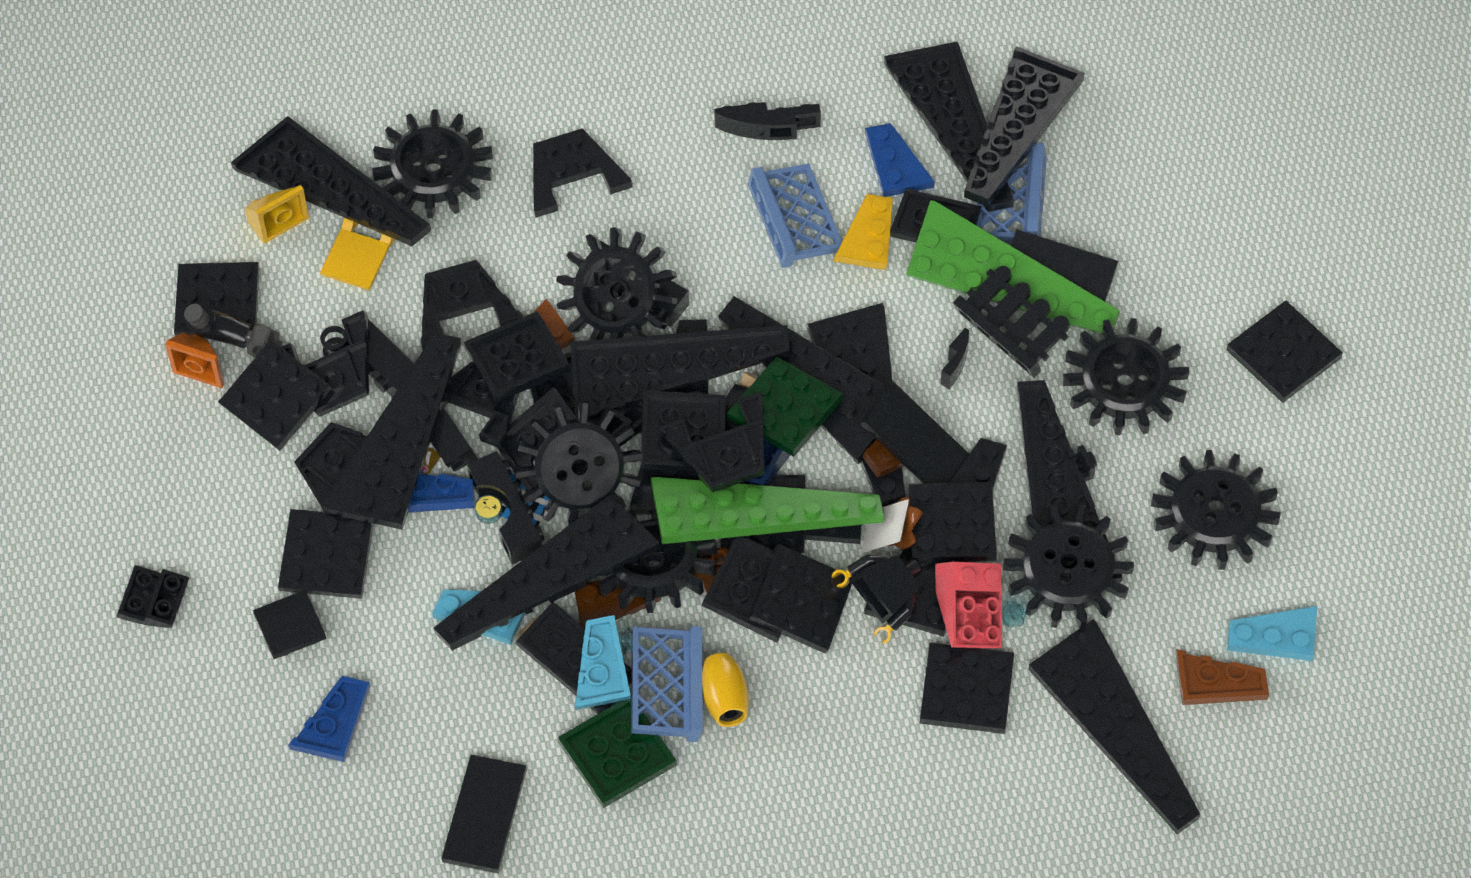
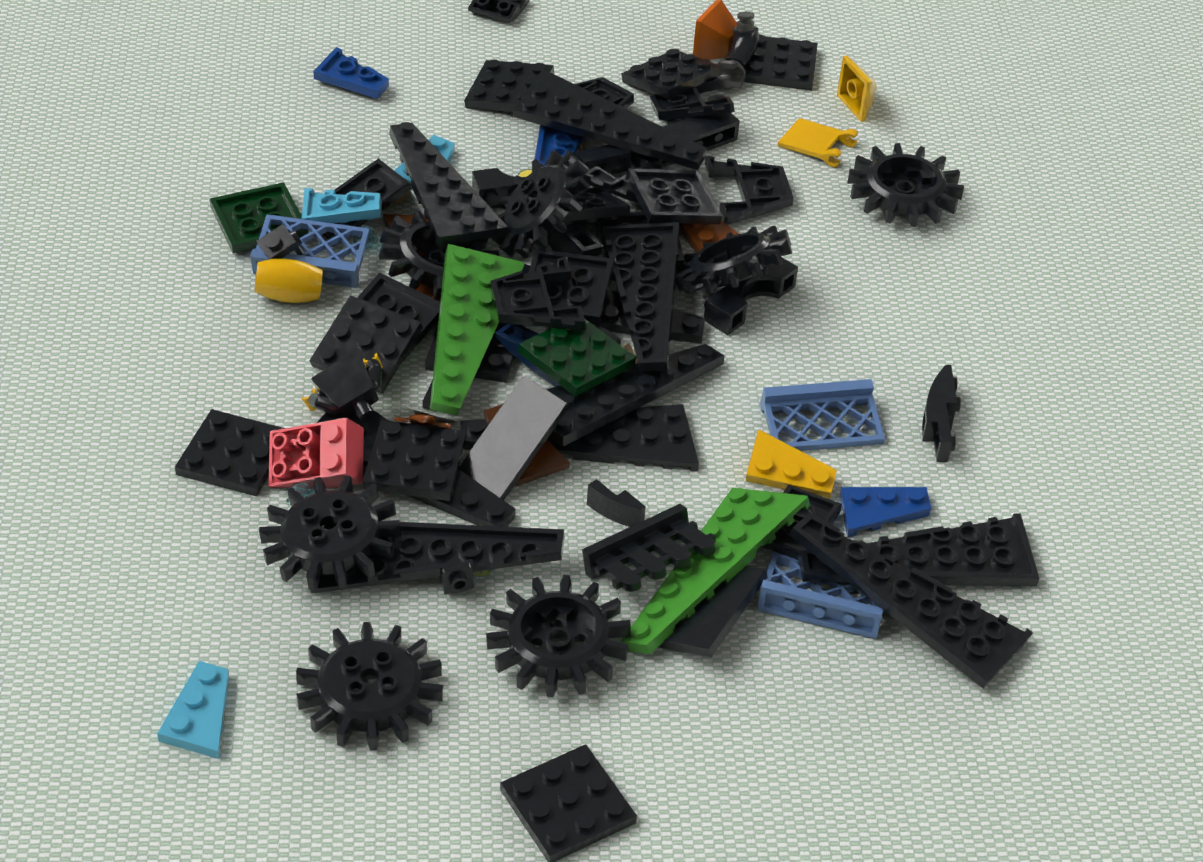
camera: 95 degrees right, 15 degrees down
(289, 624) = (447, 58): black slope -> none
(295, 157) = (901, 117): black wing -> none
(484, 814) = (234, 142): black tile -> none
(569, 160) = (905, 273): black wing -> none
(687, 698) = (280, 243): none -> black bracket
(1099, 698) = (167, 551): black wing -> none
(1218, 682) = (161, 642): dark orange wing -> none

